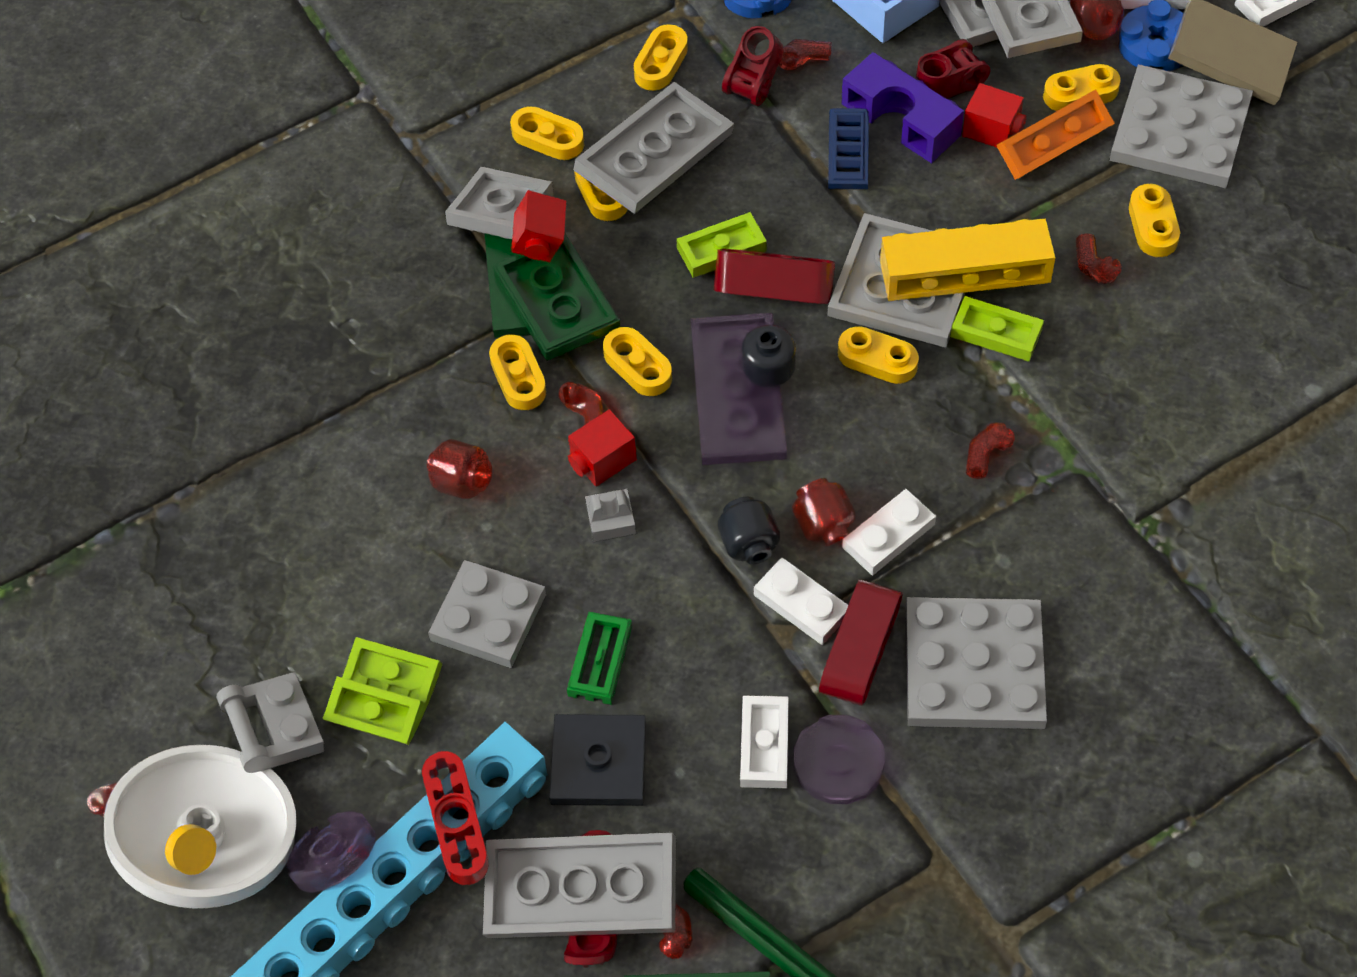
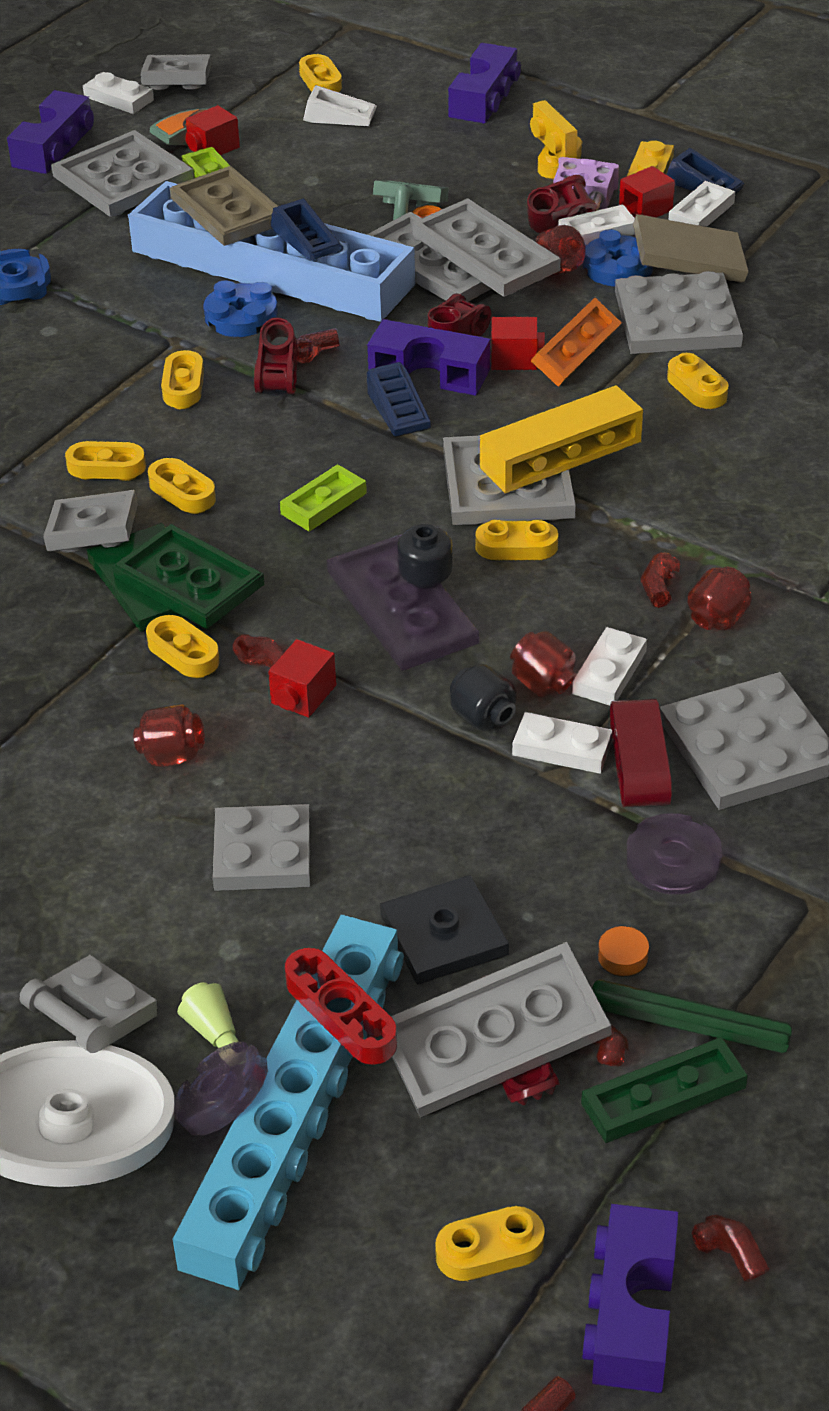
camera: 25 degrees left, 15 degrees down
(190, 849) = (74, 1124): yellow tile -> none
(361, 771) = (208, 1013): none -> yellowish green cone
(383, 691) = (190, 942): lime slope -> none
(538, 226) = (149, 514): red brick -> none
(592, 689) = (400, 874): green tile -> none
(610, 515) = (338, 730): light grey tile -> none
(640, 364) = (295, 605): yellow plate -> none
(653, 147) = (218, 440): light grey plate -> none
(739, 844) = (623, 951): none -> orange tile
(764, 742) = (598, 859): white plate -> none
(774, 276) = (389, 502): dark red beam -> none
(997, 328) = (613, 489): lime plate -> none
(1026, 496) = (719, 598): none -> clear red head
(1079, 83) = (564, 308): yellow plate -> none
(1099, 269) = (665, 425): clear red arm -> none

